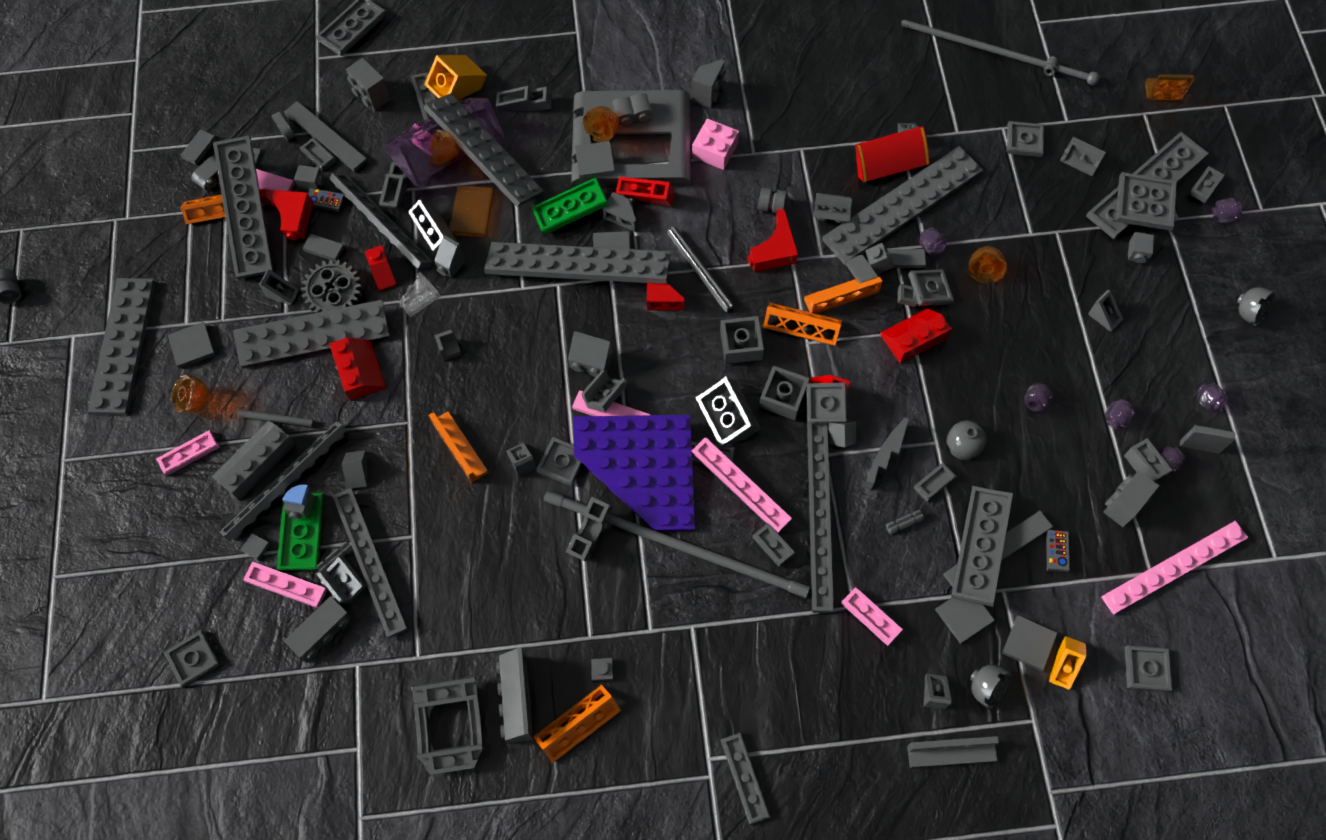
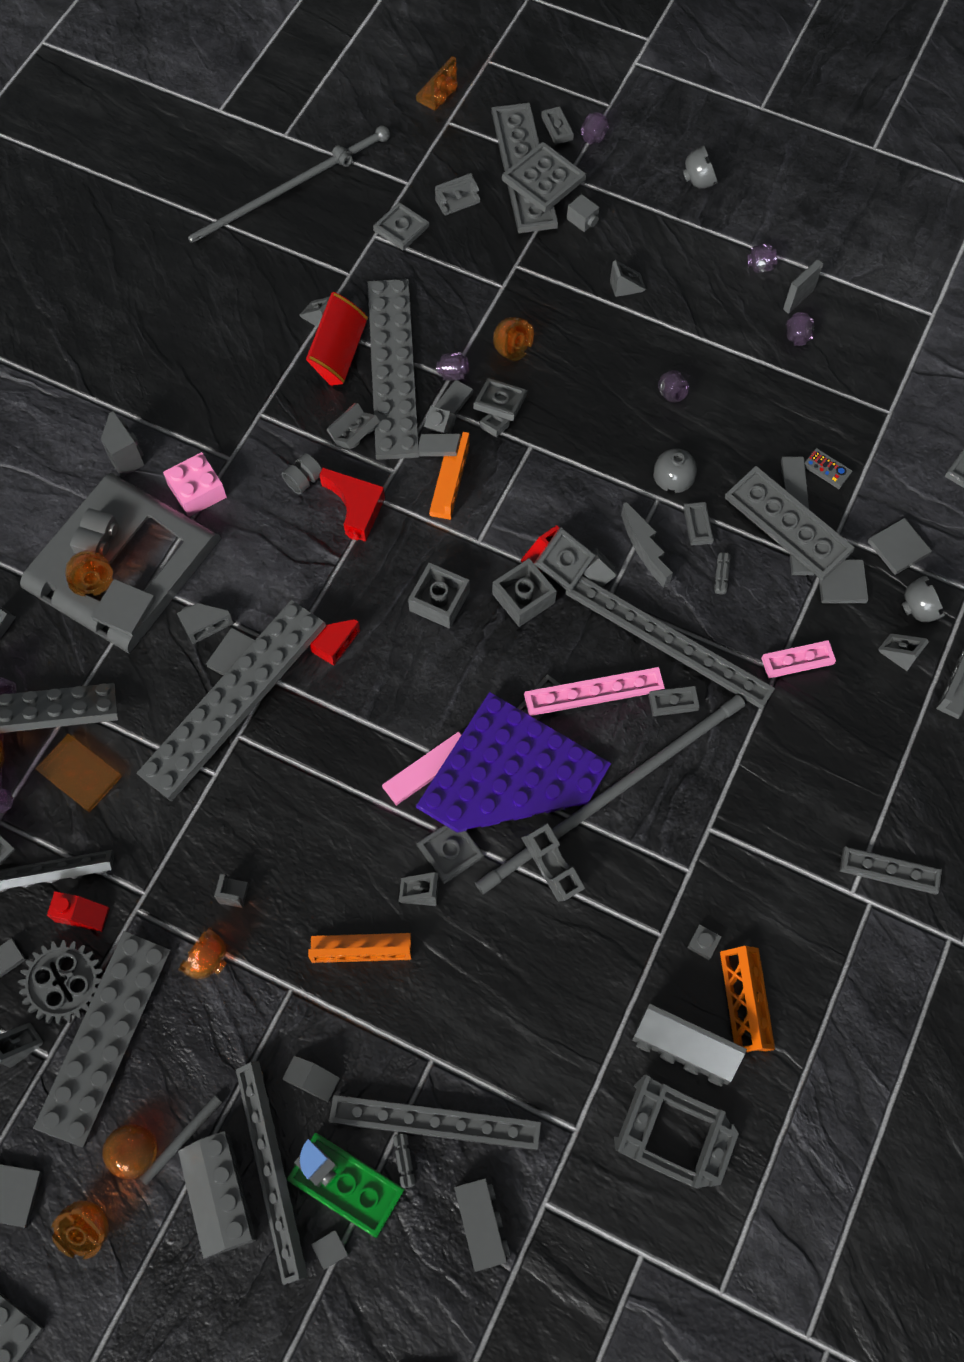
camera: 60 degrees left, 0 degrees up
(188, 453) = (151, 1273): bright pink tile -> none
(252, 393) = (129, 1151): none -> clear orange cylinder
(285, 585) = (401, 1237): bright pink plate -> none
(342, 581) = (439, 1166): dark grey bracket -> none
(357, 367) = (185, 1007): red slope -> none
(394, 356) = (205, 956): none -> clear orange cylinder
(418, 295) = (144, 888): clear wing -> none
(430, 223) = (71, 823): dark grey brick -> none
(449, 257) = (124, 827): dark grey slope -> none
(570, 206) = (157, 666): green tile -> none
(589, 354) = (353, 748): dark grey slope -> none
(602, 392) = (406, 760): dark grey bracket -> none
(646, 190) = (198, 581): red slope -> none
(700, 269) = (326, 587): dark grey axle -> none
(728, 412) = (508, 657): dark grey slope -> none
(805, 317) = (452, 525): orange fence -> none
(916, 334) = (538, 442): red slope -> none
(1068, 662) = (937, 526): light orange slope -> none
(1119, 414) = (732, 335): clear purple head -> none
(1129, 498) = (820, 378): dark grey brick -> none
(1147, 460) = (793, 345): dark grey panel -> none
(1174, 567) = (897, 392): bright pink plate -> none

